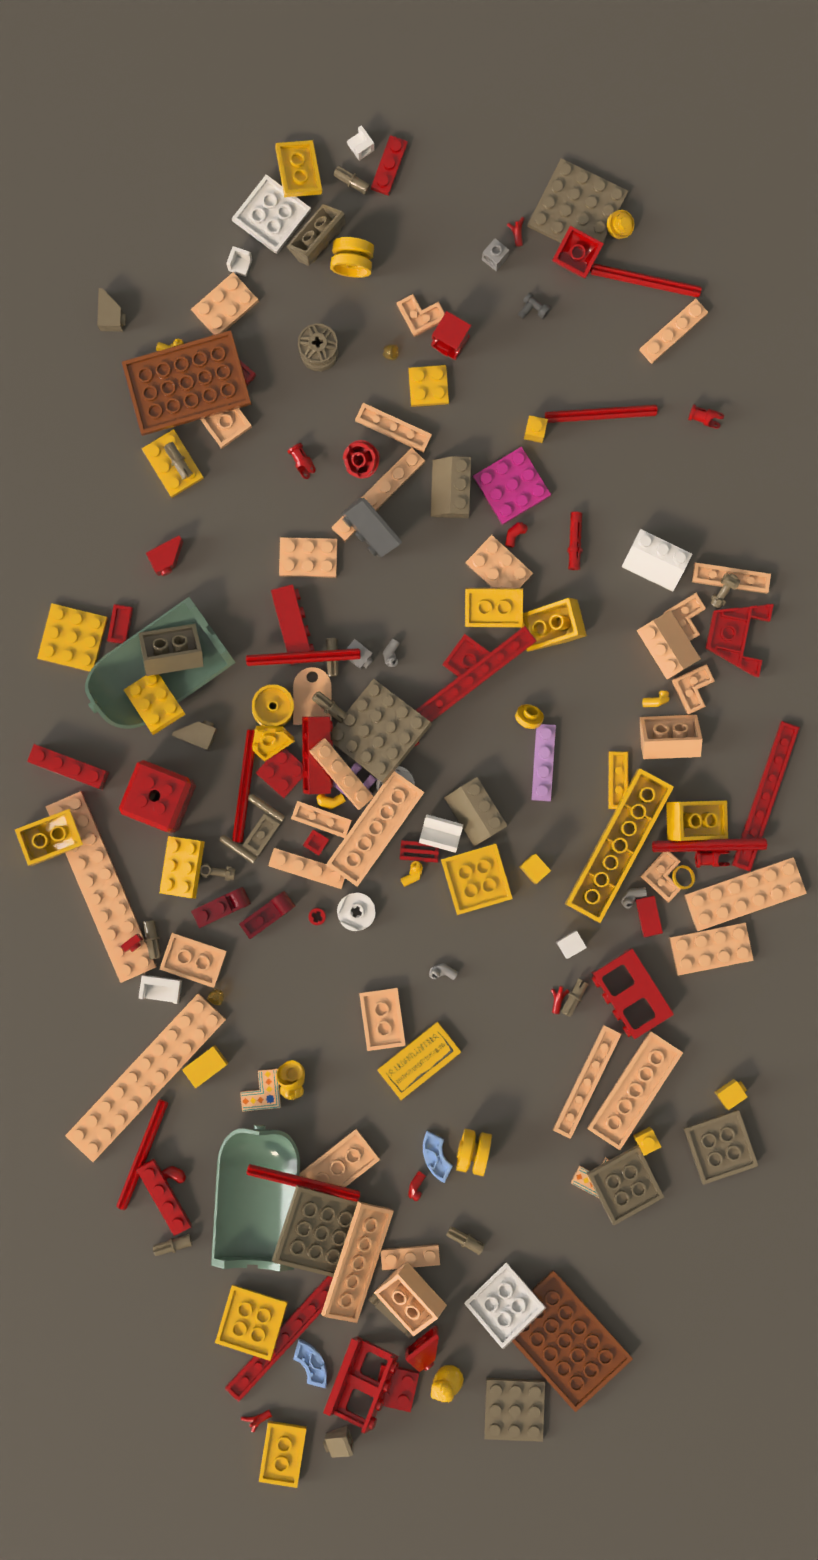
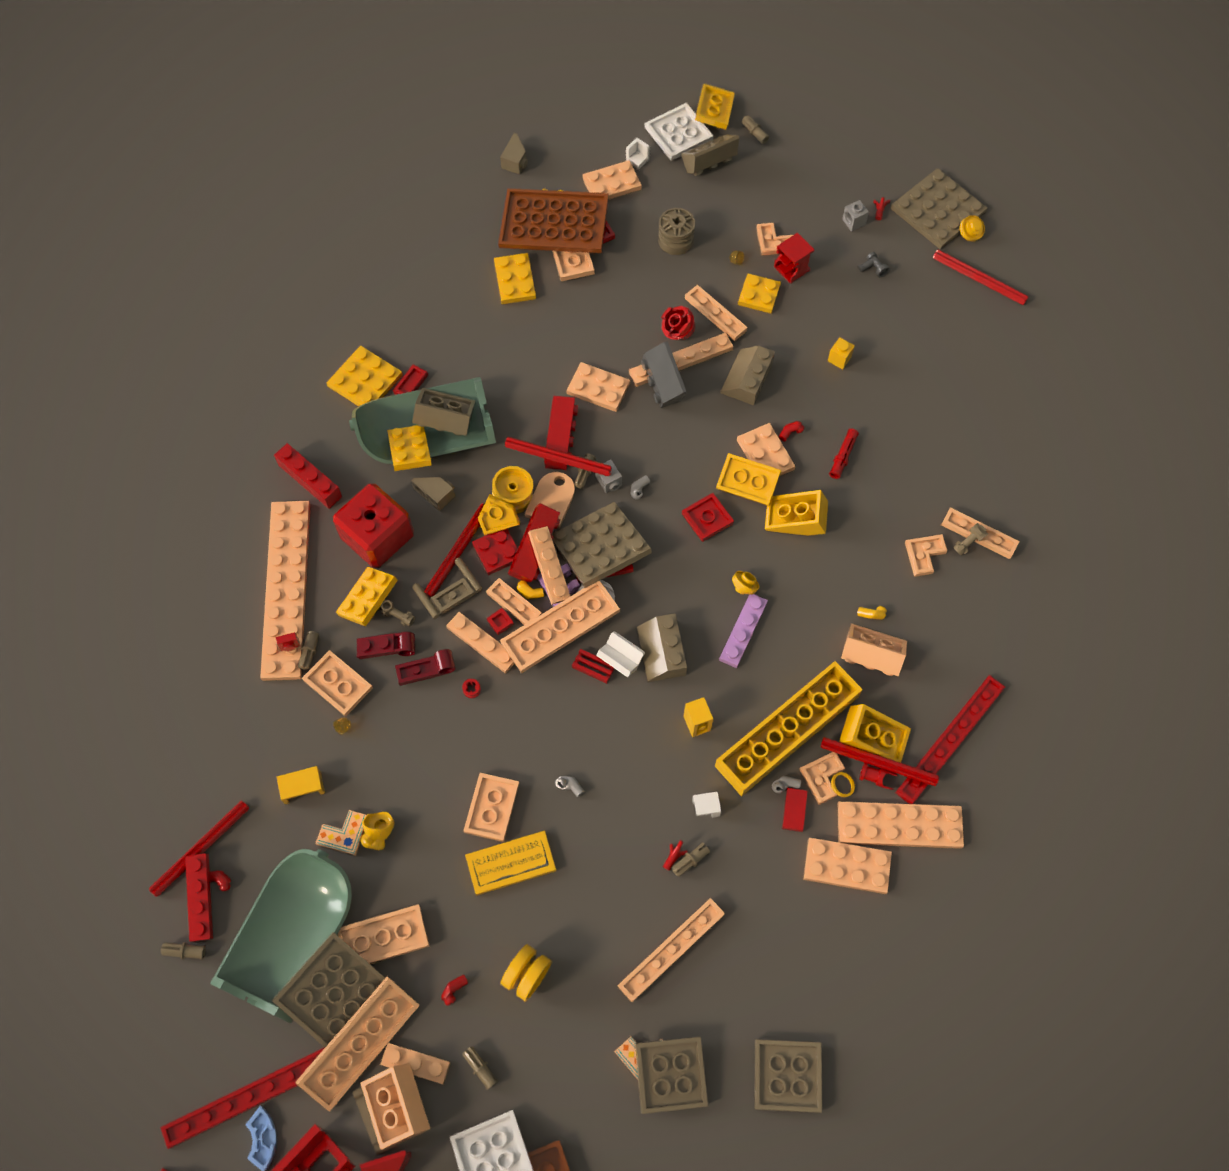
camera: 20 degrees right, 20 degrees down
(48, 837) = (259, 525): yellow slope -> none
(145, 1077) = (238, 776): light nougat plate -> none
(160, 988) = (294, 697): white panel -> none
(165, 556) = (476, 341): red slope -> none
(177, 460) = (519, 272): dark tan axle -> none
(251, 1322) = (221, 1064): yellow plate -> none
(293, 1180) = (331, 926): red axle -> none
(303, 462) = (626, 312): red piece -> none
(329, 706) = (563, 507): dark tan axle -> none
(346, 916) = (510, 708): white plate -> none
(352, 257) = (732, 176): yellow wheel -> none
(361, 144) = (775, 109): white panel -> none
(389, 165) = (790, 130): red plate -> none
(414, 874) = (581, 683): yellow arm -> none
(434, 1156) = (485, 967): light blue tile -> none
(476, 879) = (637, 710): yellow plate -> none
(477, 674) = (711, 528): red tile -> none
(511, 485) = (802, 392): dark pink plate -> none
(577, 252) = (927, 234): red slope -> none
(601, 413) = (905, 363): red axle -> none
(617, 777) = (811, 666): yellow tile -> none
(634, 1090) = (717, 979): light nougat plate -> none
(642, 988) = (763, 873): red window -> none
(647, 1141) = (711, 1036): yellow brick -> none
(656, 560) = (914, 493): white slope -> none
(668, 644) = (900, 567): light nougat slope -> none
(673, 331) = (992, 322): light nougat plate -> none
(688, 686) = (907, 613): light nougat tile -> none
(705, 416) = (998, 394): red piece -> none
(729, 634) = (962, 580): red wing -> none
(731, 1094) = (819, 1022): yellow brick -> none

